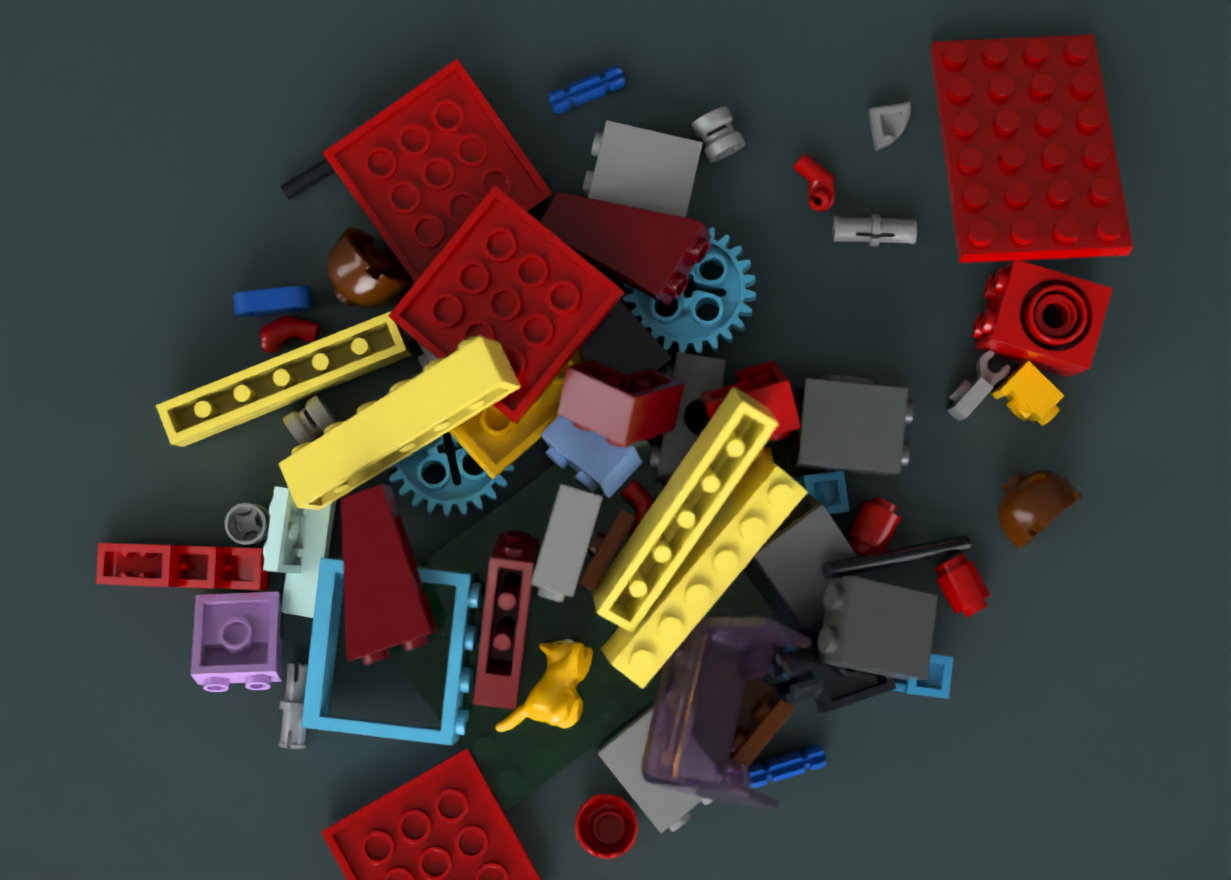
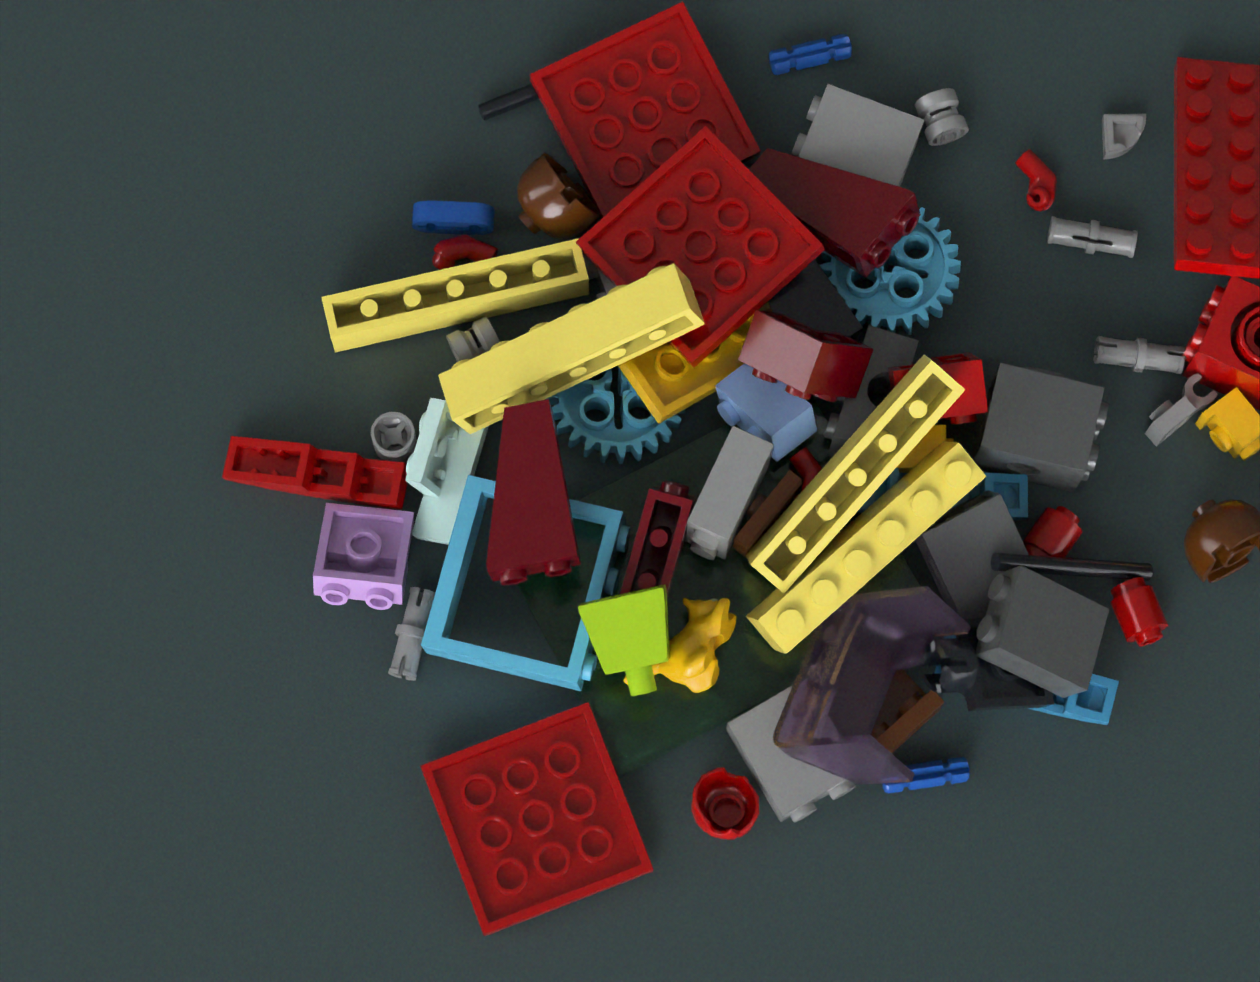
camera: 10 degrees right, 10 degrees down
(492, 696) = (630, 634): none -> lime torso
(932, 338) = (1139, 354): none -> light grey pin

